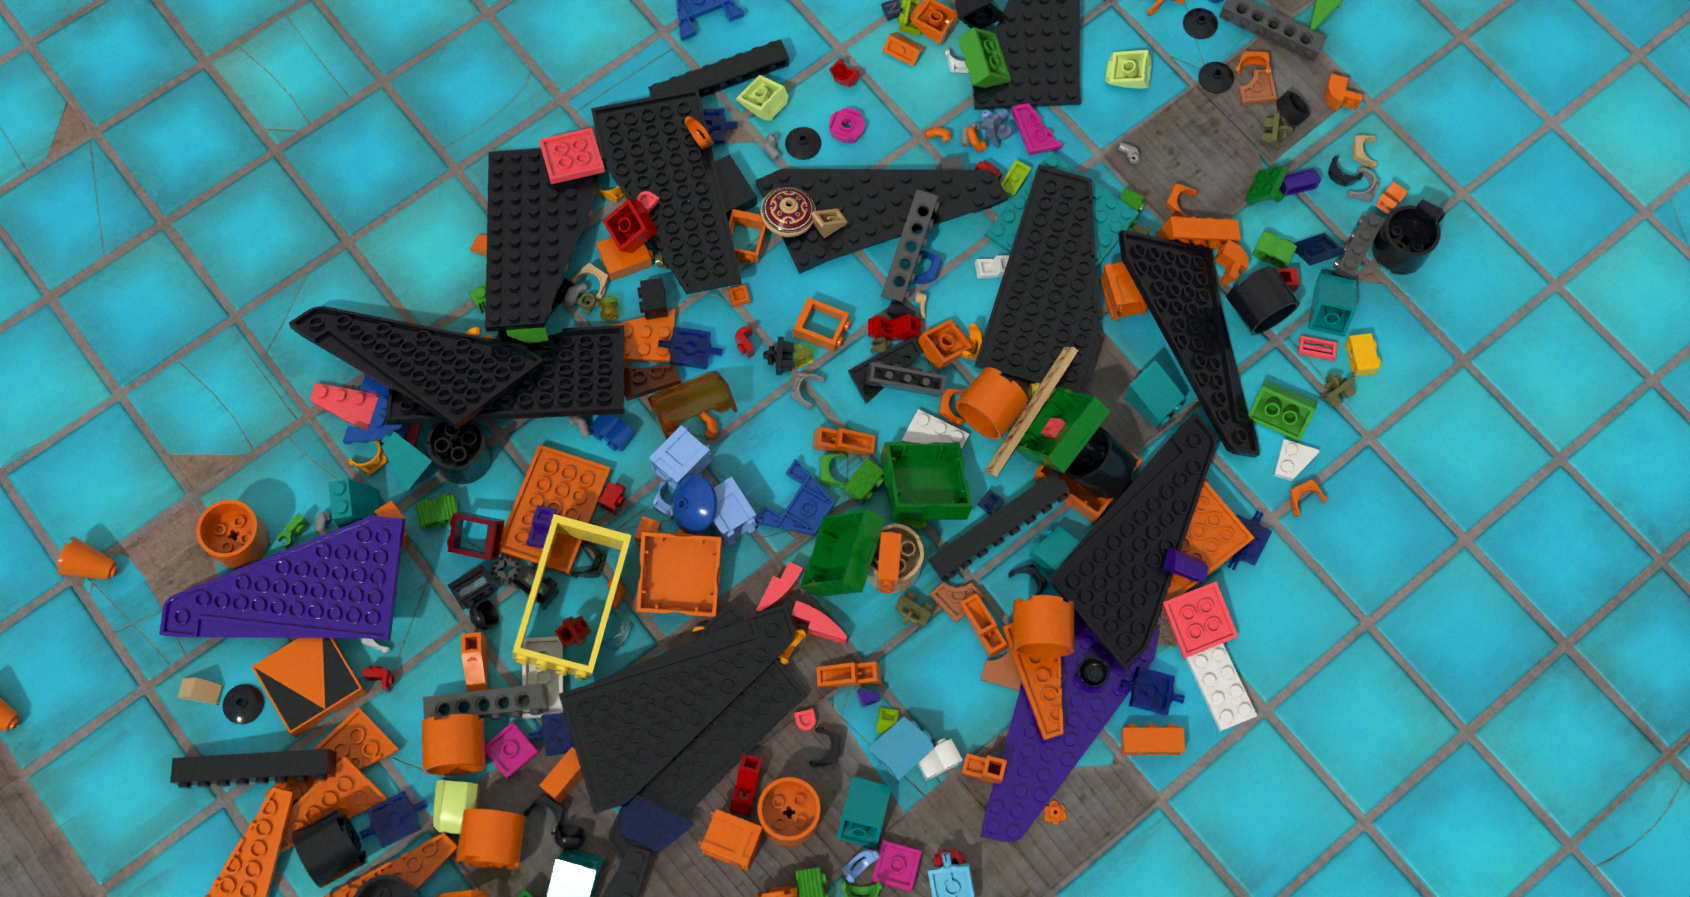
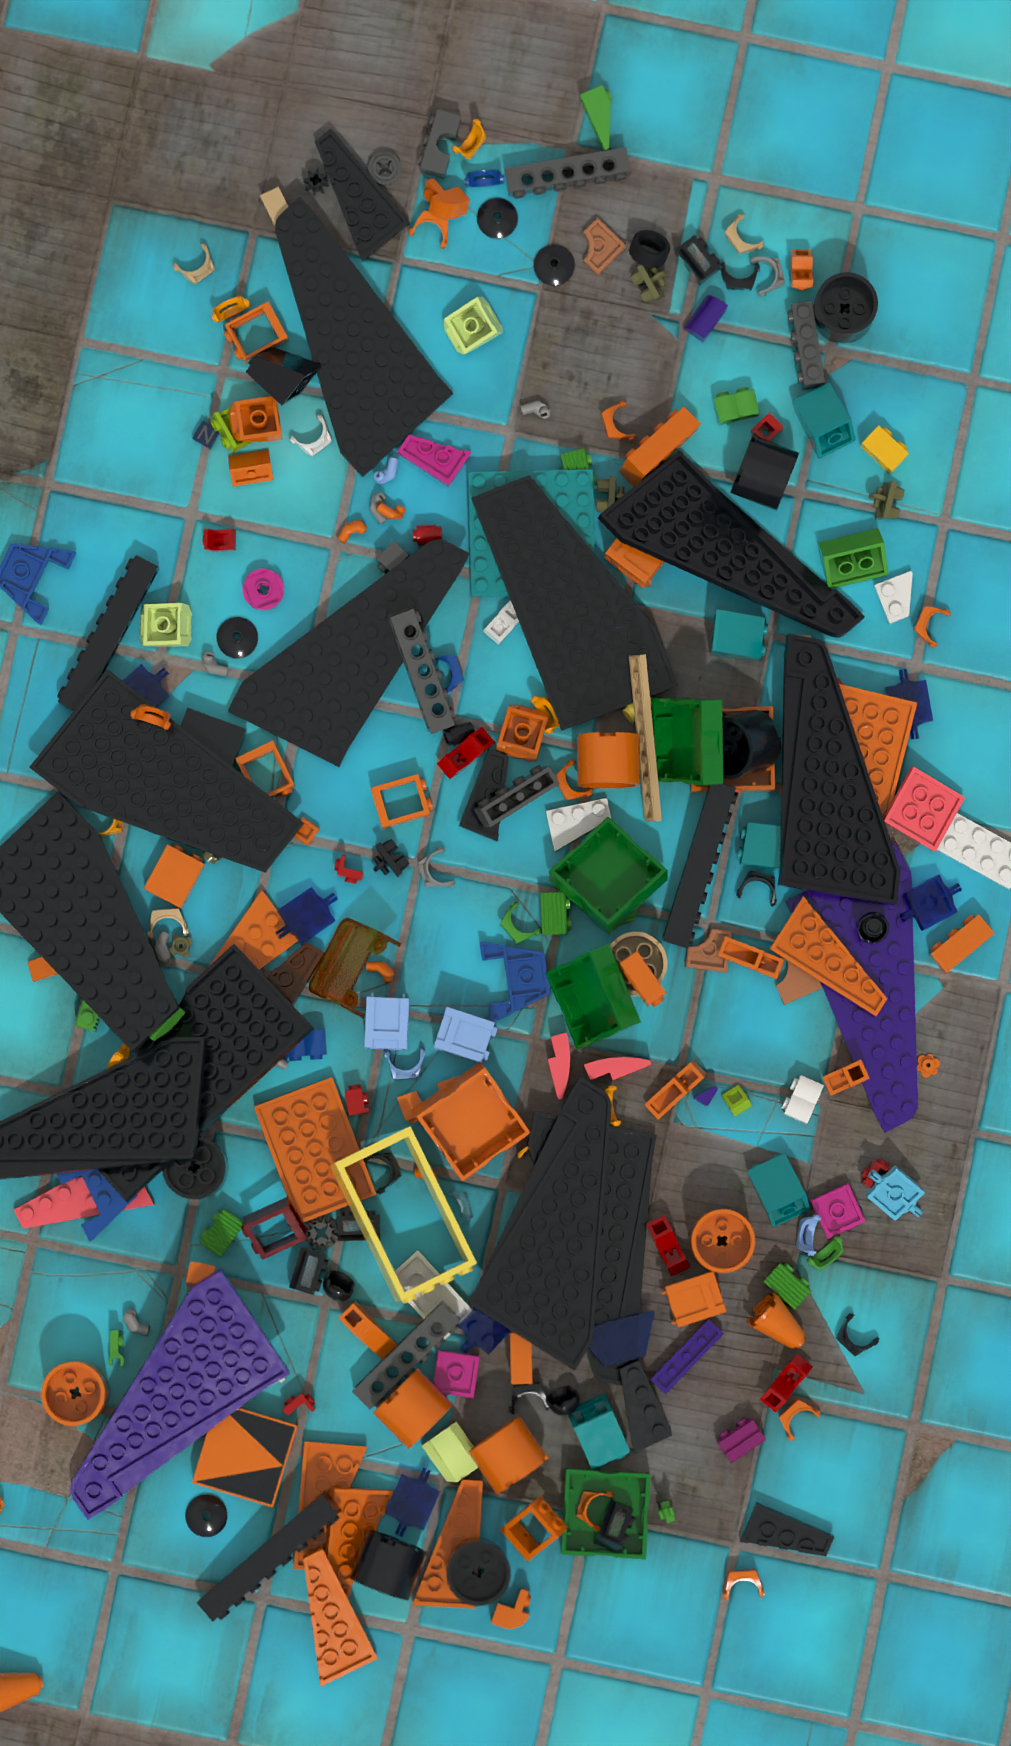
camera: 40 degrees left, 15 degrees up
(200, 691) = (162, 1535): tan slope -> none
(352, 501) = (151, 1285): teal slope -> none
(375, 464) = (131, 1236): light orange helmet -> none
(405, 459) = (161, 1213): teal slope -> none
(540, 526) = (321, 1175): dark purple slope -> none
(571, 155) = (50, 825): coral plate -> none
(573, 631) = (427, 1241): dark red brick -> none
(609, 308) = (209, 939): clear yellow wheel -> none
(630, 226) = (167, 853): red brick -> none
(648, 199) = (159, 816): coral tile -> none
(653, 298) = (237, 897): black brick -> none
(690, 881) = (686, 1356): none -> dark purple plate
(694, 504) = (435, 1055): blue dish -> none
(787, 220) = (287, 735): dish -> none
(802, 356) = (408, 844): clear yellow tile -> none
(805, 719) = (670, 1154): coral tile -> none
(828, 221) = (331, 701): tan slope -> none
(832, 756) = (717, 1165): black helmet -> none
(843, 441) = (507, 892): orange slope -> none
(880, 345) = (466, 779): olive plate -> none
(902, 747) = (768, 1115): medium azure brick -> none
(912, 611) = (686, 994): olive hips -> none
(921, 299) = (466, 705): tan hand -> none
(983, 58) = (337, 426): bright green slope -> none
(991, 502) = (673, 844): dark blue tile -> none
(995, 129) = (403, 488): sand blue hips -> none
(1015, 178) = (455, 521): lime plate -> none
(1043, 626) = (807, 928): orange brick -> none
(1053, 427) = (675, 738): coral tile -> none
(1185, 565) = (879, 774): dark purple brick -> none
(1233, 259) = (707, 446): orange brick -> none
(1254, 57) = (571, 220): orange helmet -> none
(1267, 185) = (683, 349): green plate -> none
(1301, 348) = (825, 480): coral tile -> none
(1318, 249) = (773, 377): dark blue tile -> none
(1322, 141) = (698, 259): none -> black window
(1337, 95) = (677, 199): orange brick -> none
(1431, 212) = (850, 274): black cone -> none

